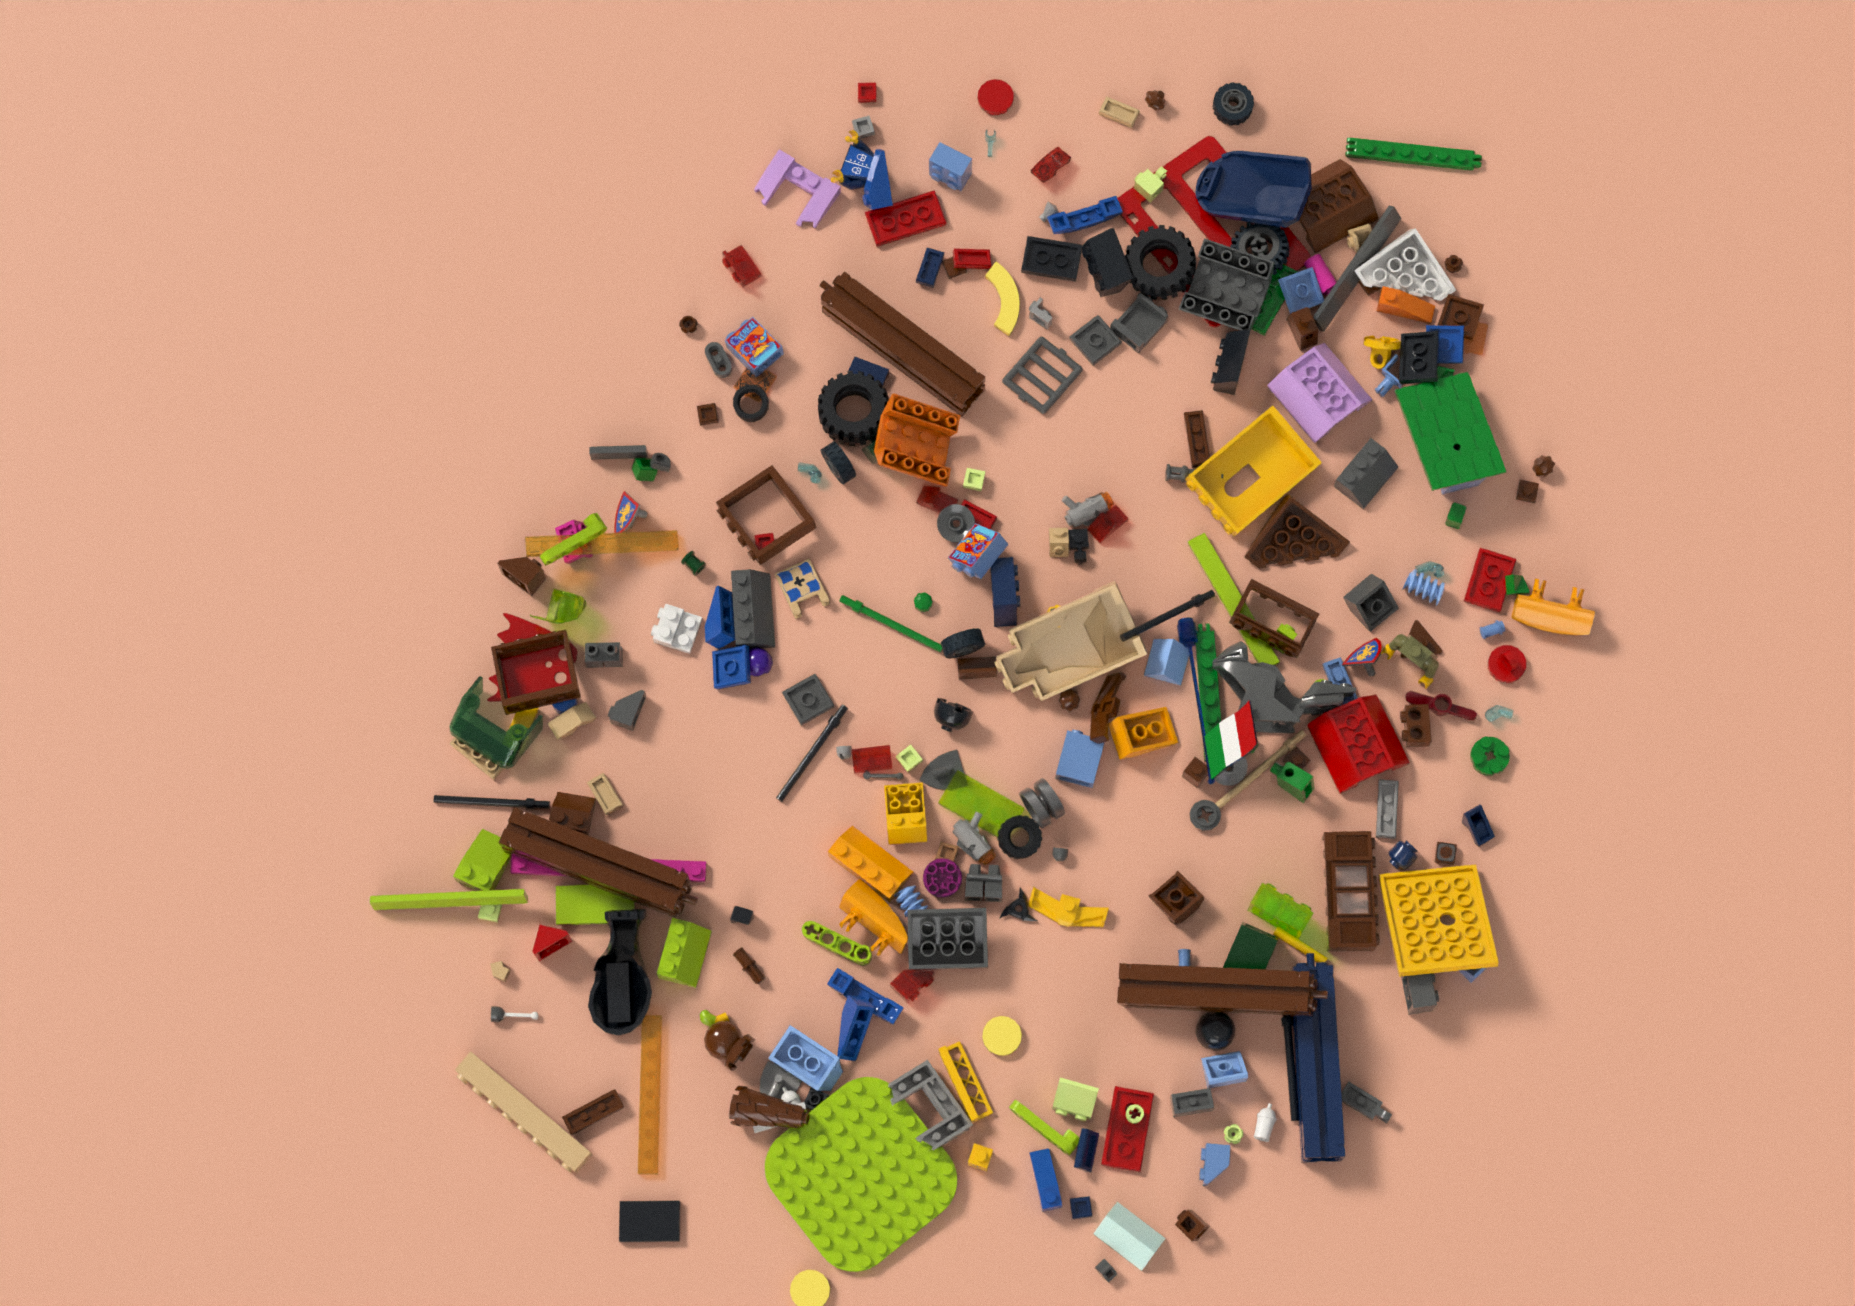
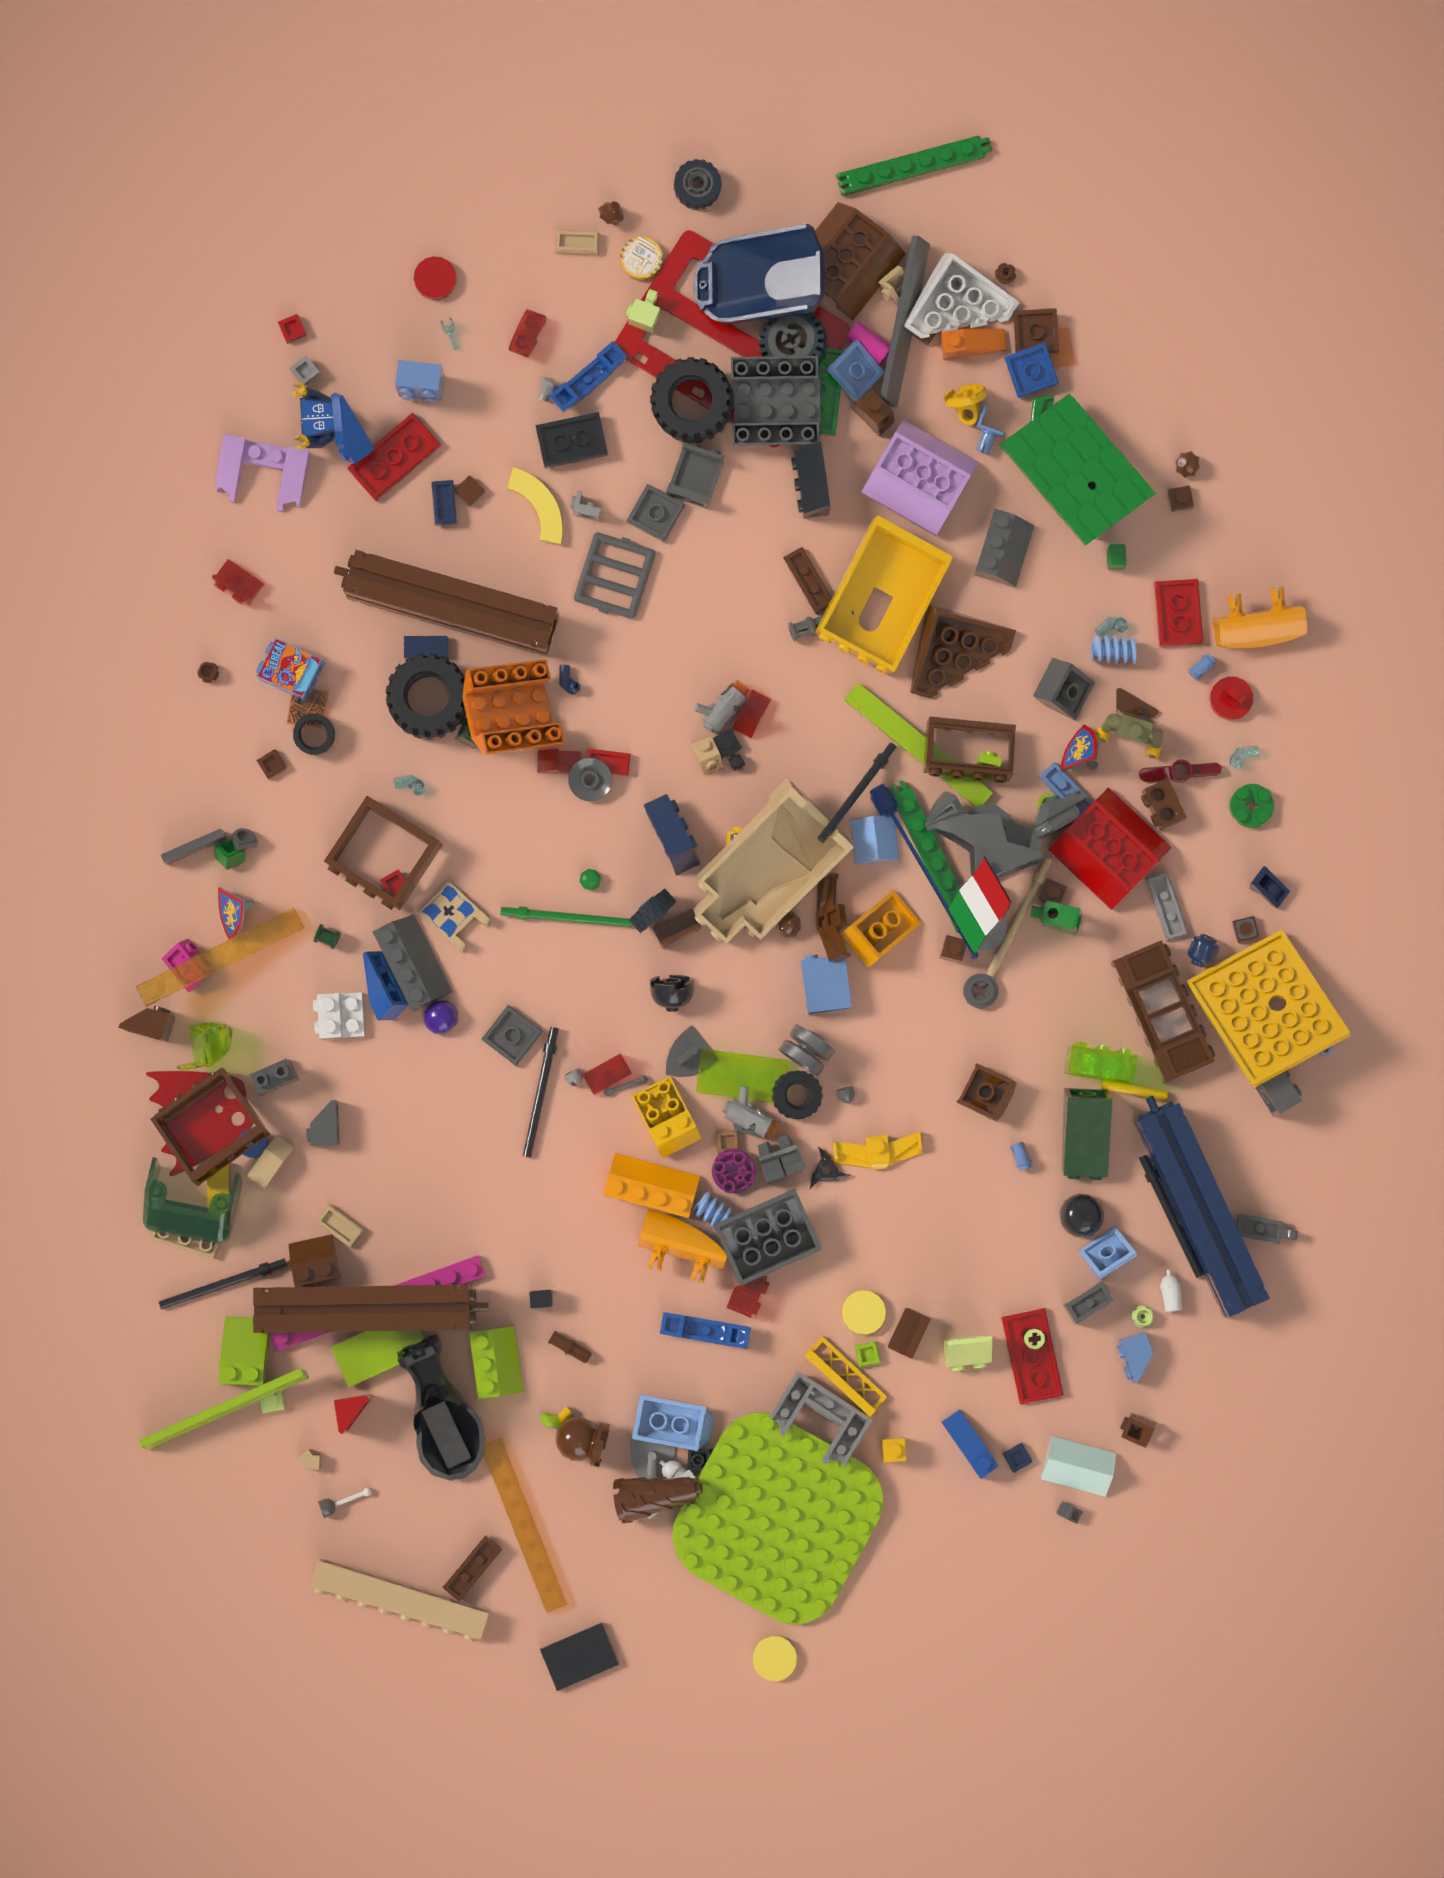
camera: 25 degrees left, 10 degrees up
(594, 529) = (206, 944): lime beam -> none
(719, 360) = (258, 700): dark grey plate -> none
(731, 667) = (416, 1034): blue tile -> none
(835, 945) = (651, 1285): lime beam -> none
(838, 462) = (437, 764): black wheel -> none
(854, 1024) = (706, 1365): blue slope -> none
(909, 758) = (645, 1056): yellowish green plate -> none
(968, 440) = (566, 681): none -> dark blue arm
(972, 258) = (485, 474): red tile -> none
(974, 479) = (589, 722): yellowish green plate -> none
(977, 551) = (626, 803): brick -> none
(991, 1071) = (867, 1354): none -> lime tile
(1032, 1068) = (909, 1333): none -> reddish brown panel
(1066, 1143) = (976, 1397): lime beam -> none
(1086, 1150) = (999, 1396): dark blue tile -> none
(1107, 263) = (634, 423): black slope -> none
(1165, 143) = (641, 258): none -> tile
(1218, 989) = (1072, 1178): reddish brown brick -> none
(1419, 357) = (1011, 397): black tile -> none
(1516, 585) = (1209, 608): green slope -> none

